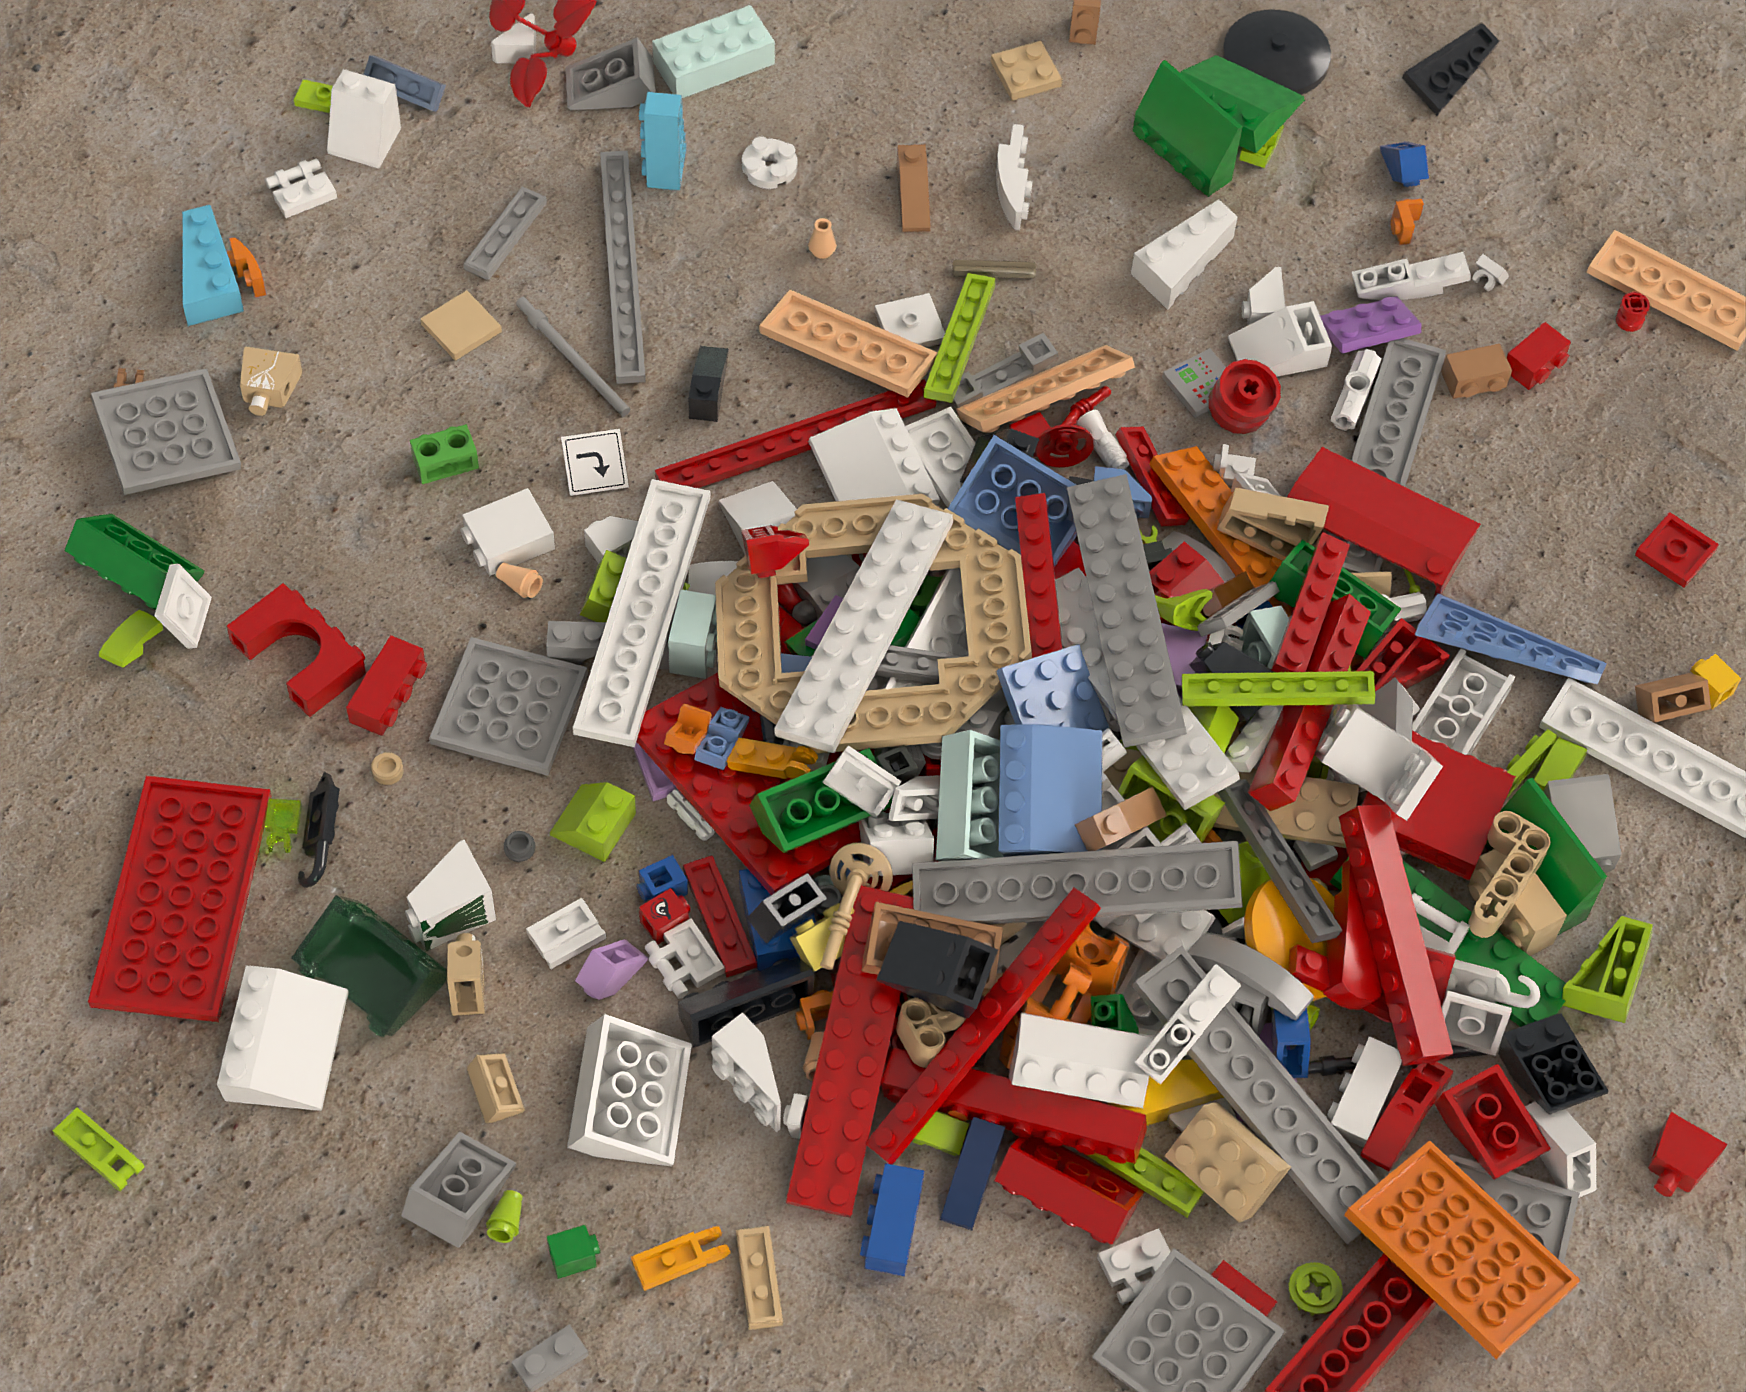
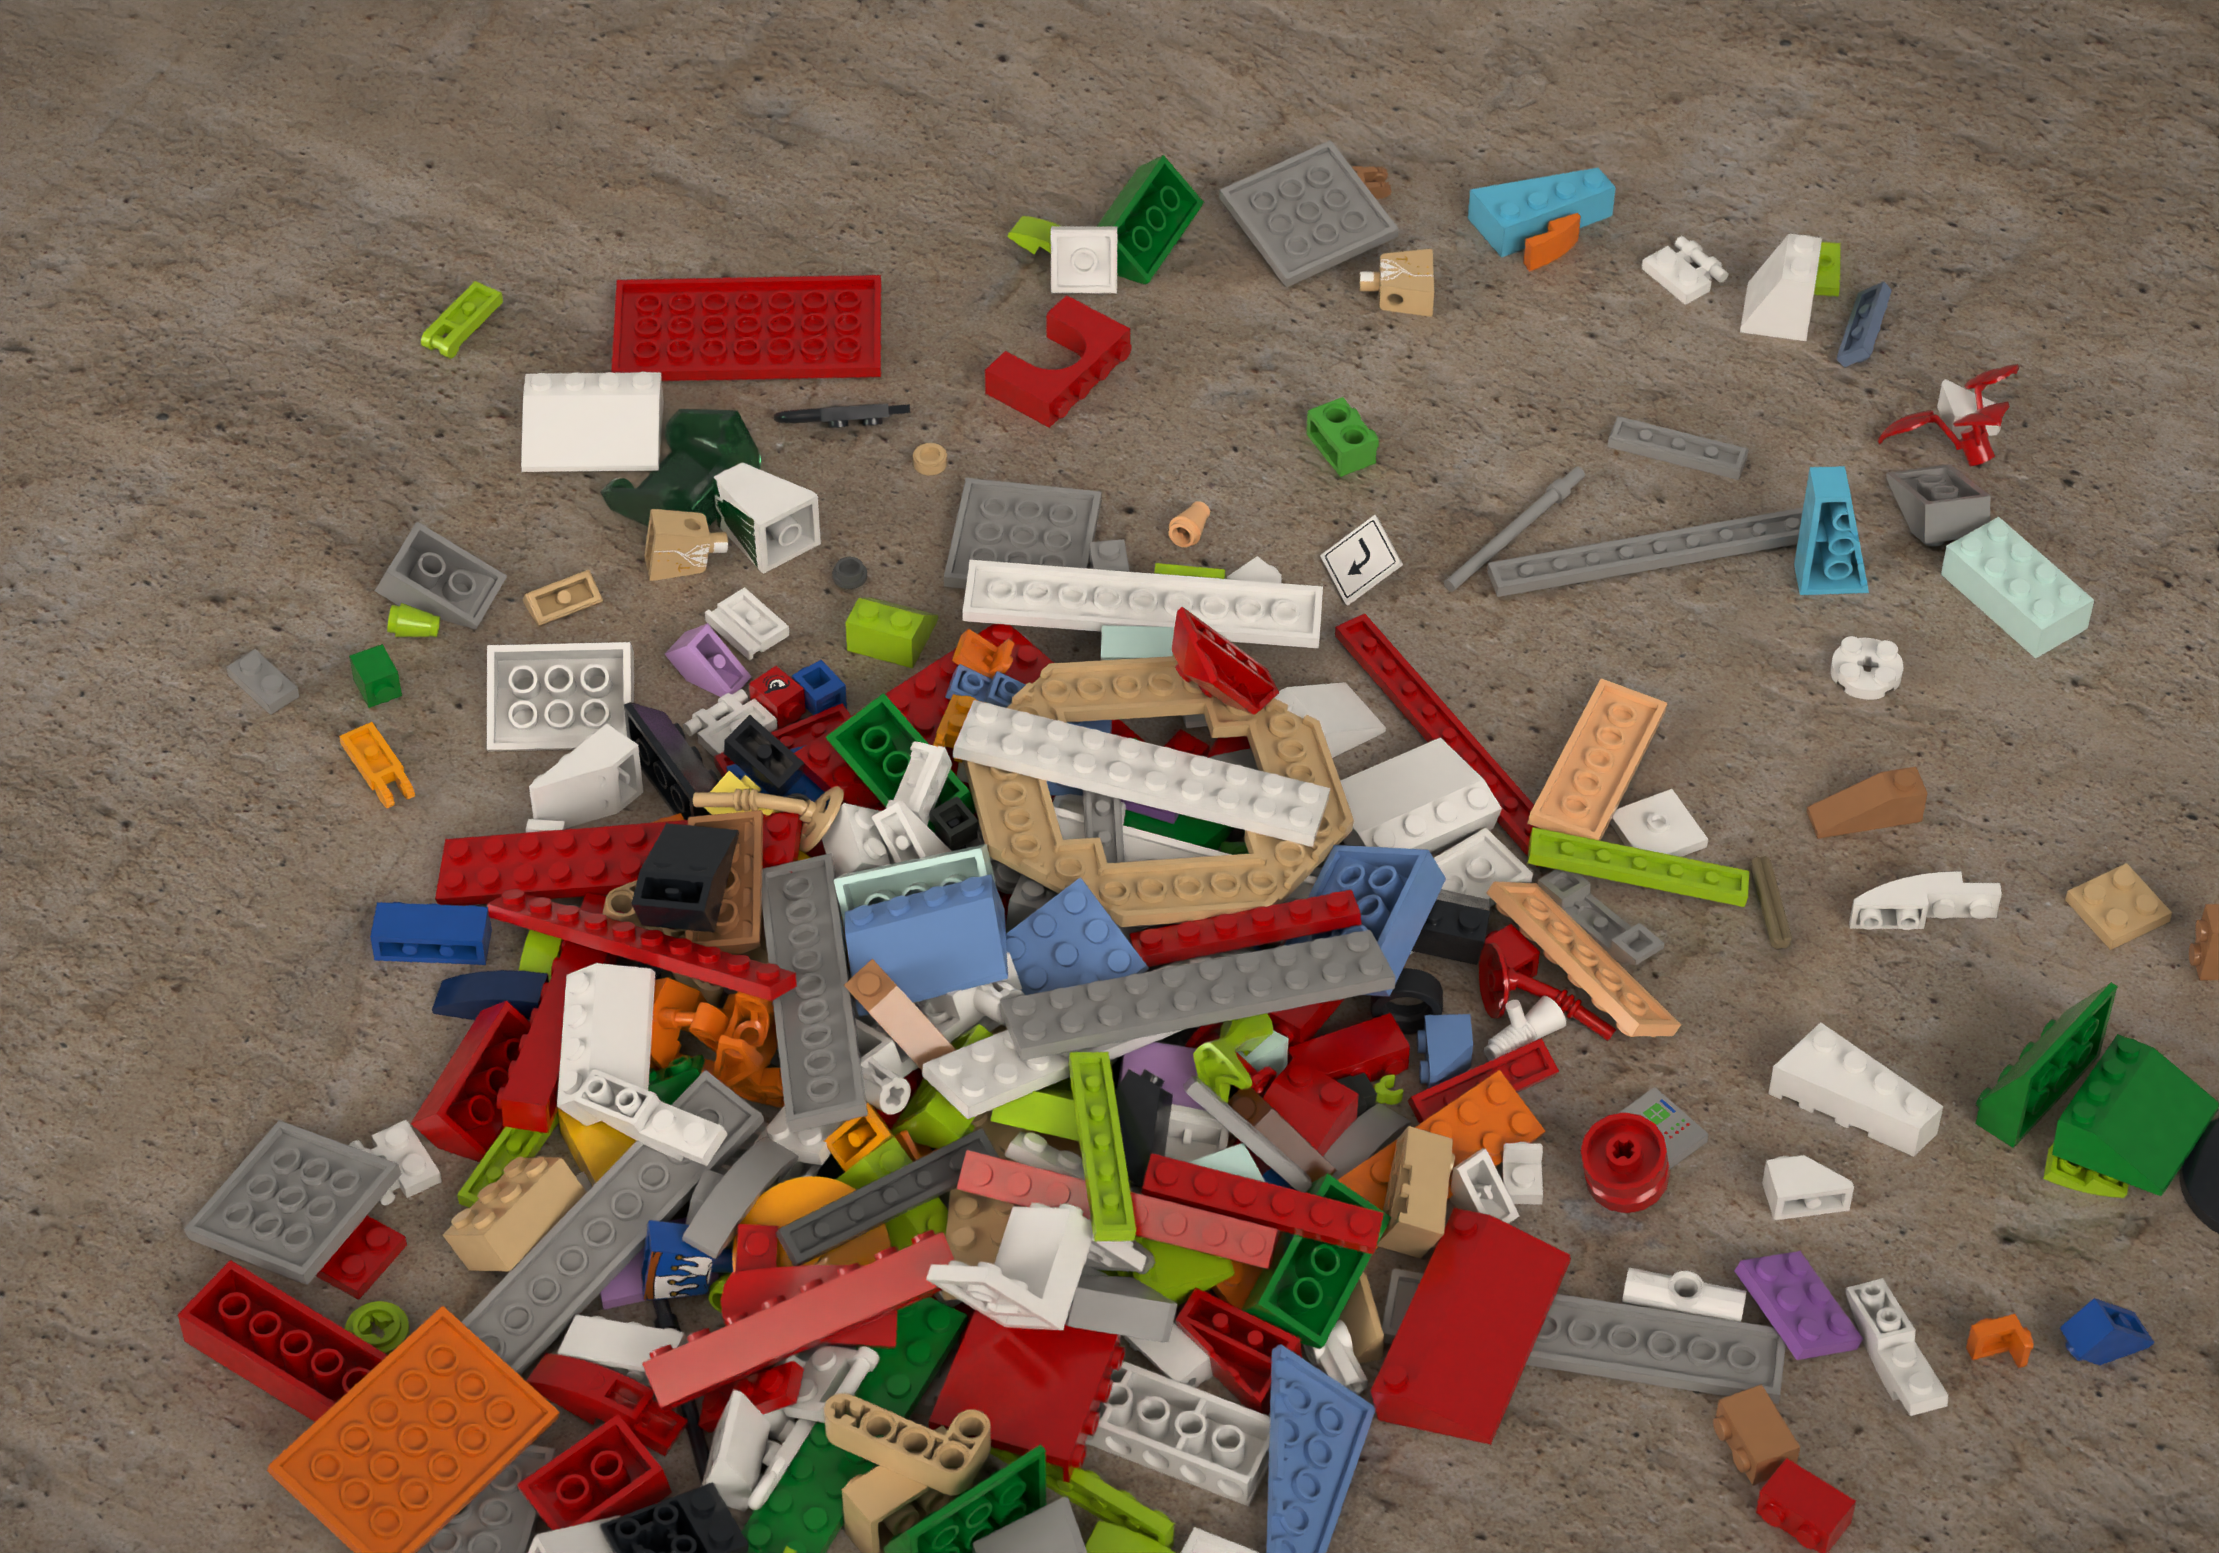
camera: 85 degrees right, 10 degrees down
(281, 820) = (848, 386): clear neon green plate -> none
(386, 686) = (1027, 436): red brick -> none
(461, 325) = (1531, 429): tan tile -> none
(507, 531) = (1250, 504): white brick -> none
(707, 383) = (1508, 646): black slope -> none
(759, 1278) = (362, 835): tan tile -> none
(822, 240) = (1754, 725): light nougat cone -> none
(1285, 340) = (1735, 1209): white slope -> none
(1489, 269) = (1941, 1446): white tile -> none

